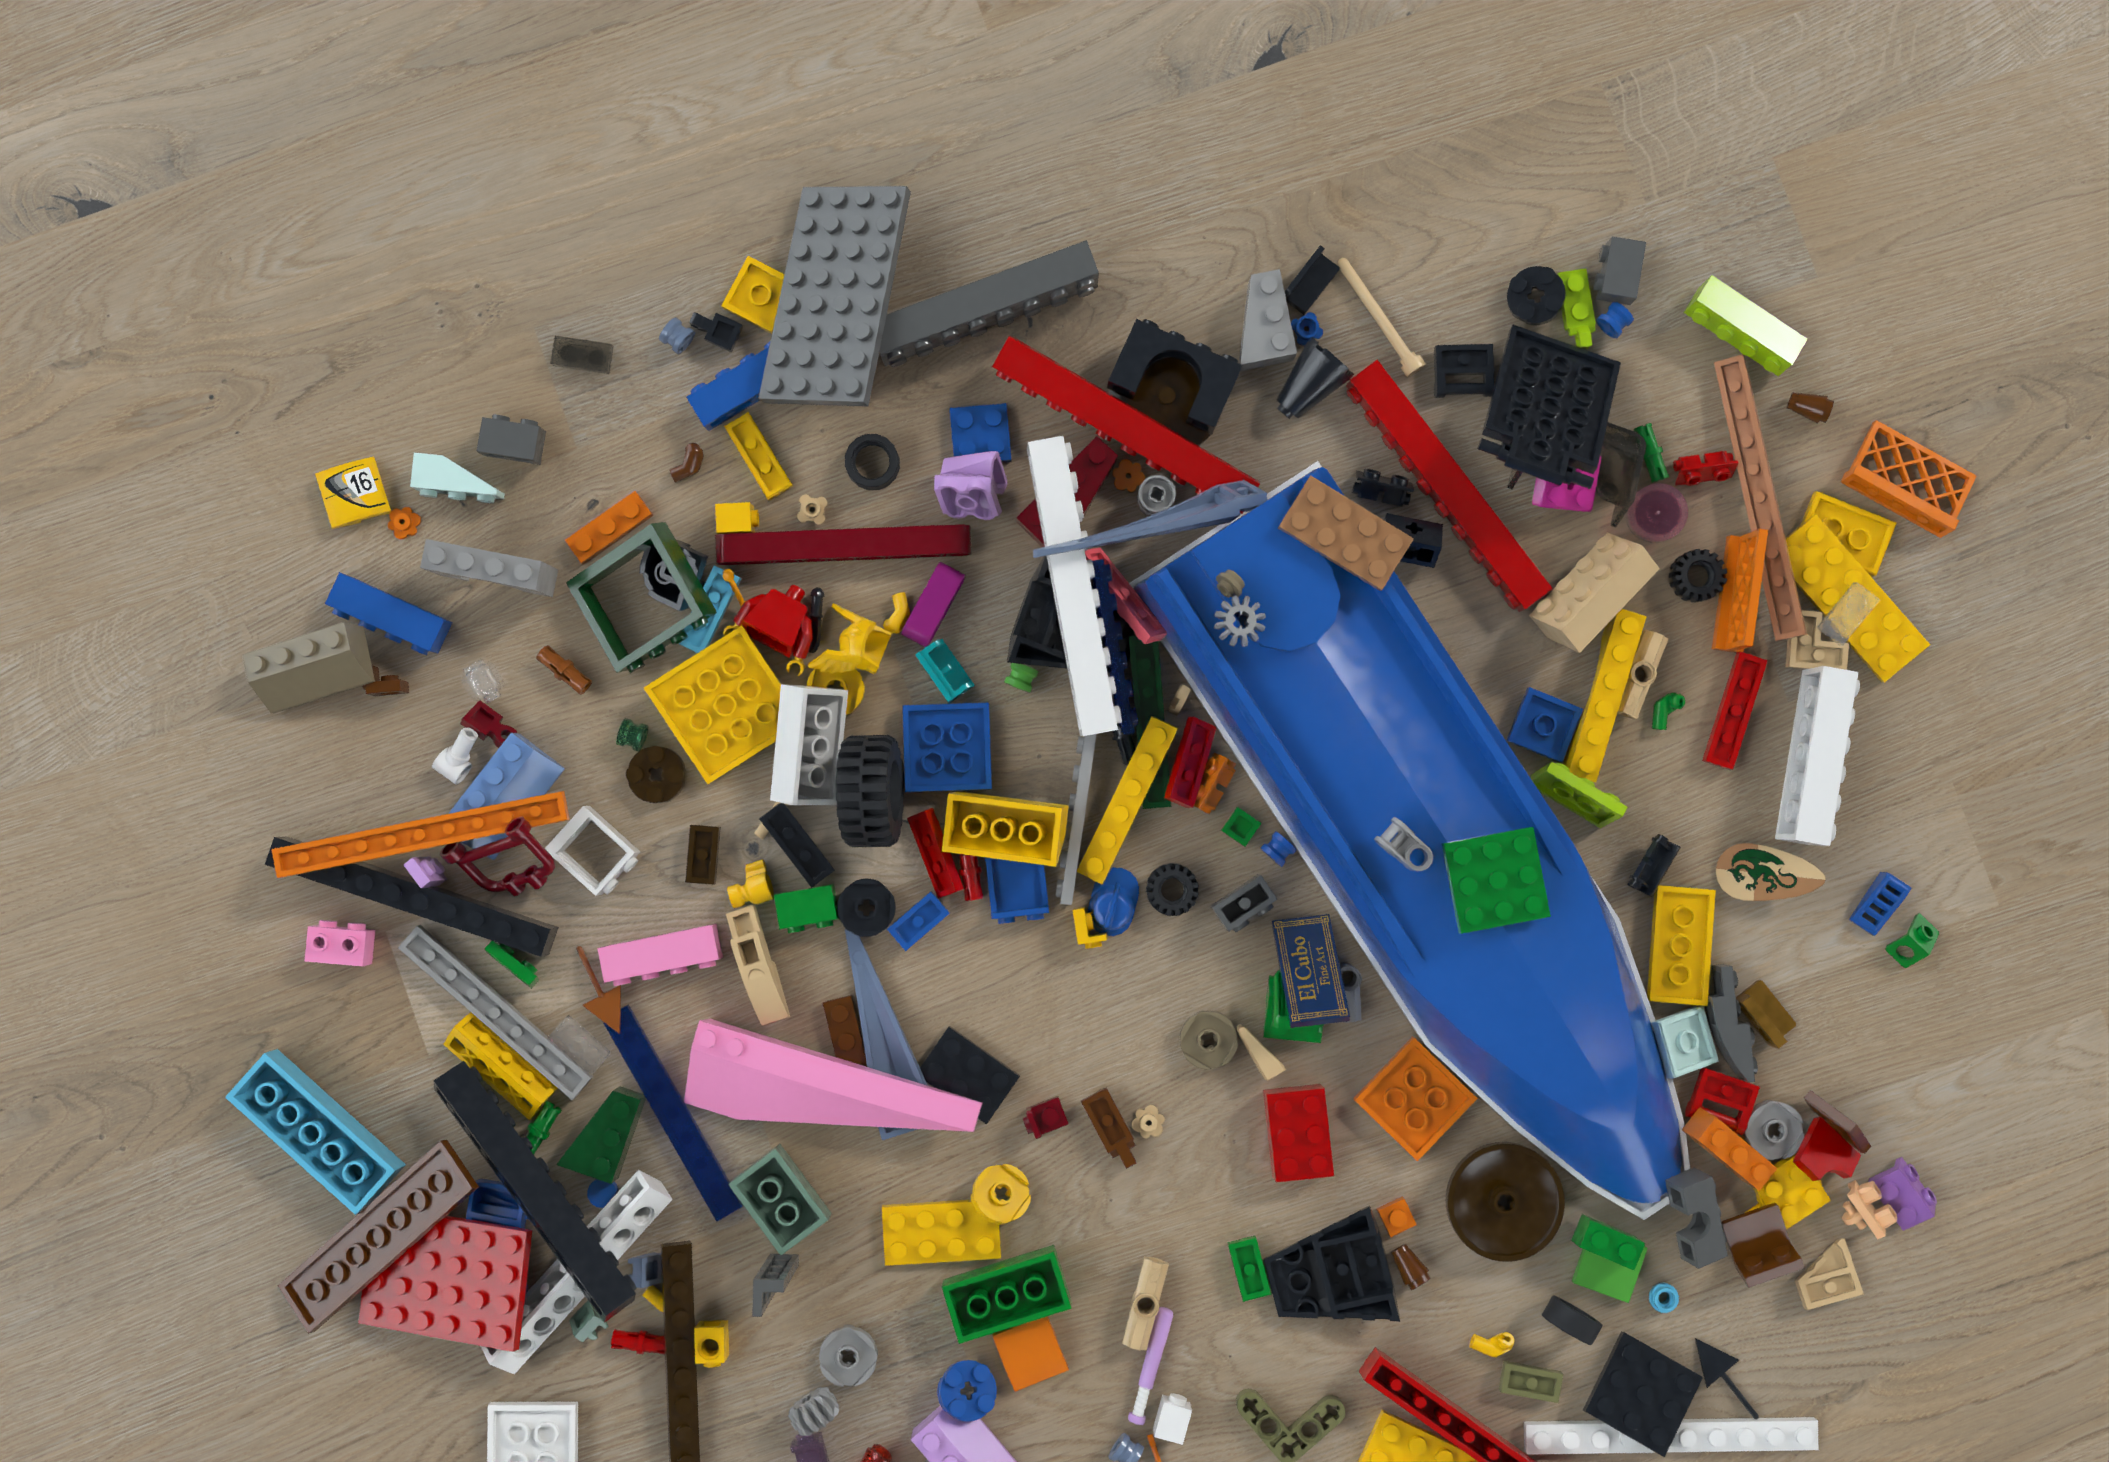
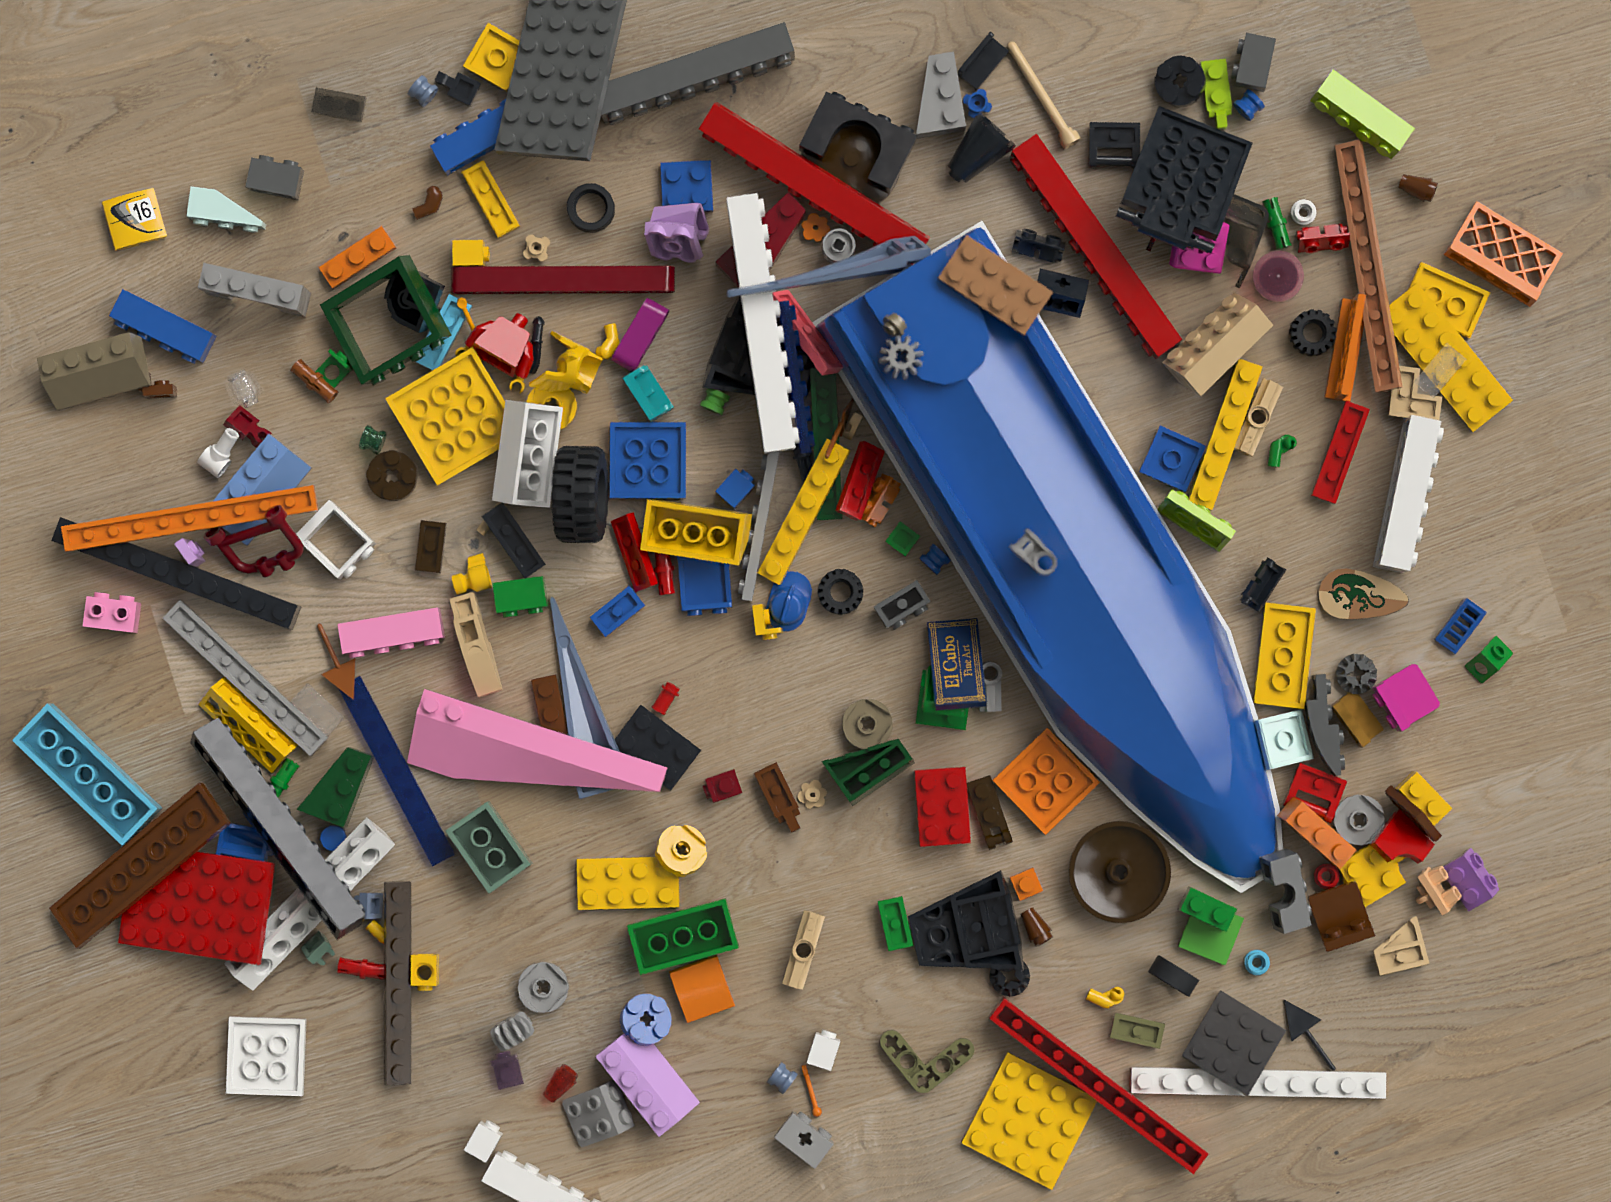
camera: 10 degrees right, 0 degrees up
(411, 520) = (183, 246): orange plant -> none
(523, 970) = (254, 628): green plate -> none
(591, 644) = (339, 360): none -> green bracket
(772, 1278) = (476, 911): dark grey fence -> none
(878, 896) = (561, 608): black plate -> none
(977, 1018) = (665, 697): none -> red pin
(1049, 775) = (736, 488): none -> blue brick
(1151, 1363) = (807, 1002): lavender piece -> none
(1164, 706) = (840, 428): none -> dark orange piece
(1212, 1093) = (868, 769): none -> dark green wedge
(1264, 1060) = (915, 742): tan slope -> none
(1351, 1135) = (989, 811): none -> dark brown plate
(1384, 1337) = (1012, 988): none -> black gear
(1496, 880) = (1112, 585): green plate -> none
(1688, 435) = (1309, 206): none -> white plate
(1746, 1199) = (1333, 879): none -> red plate
(1753, 953) = (1350, 683): none -> dark grey gear
(1821, 988) = (1405, 697): none -> dark pink bracket
(1849, 1101) = (1422, 795): none -> yellow brick

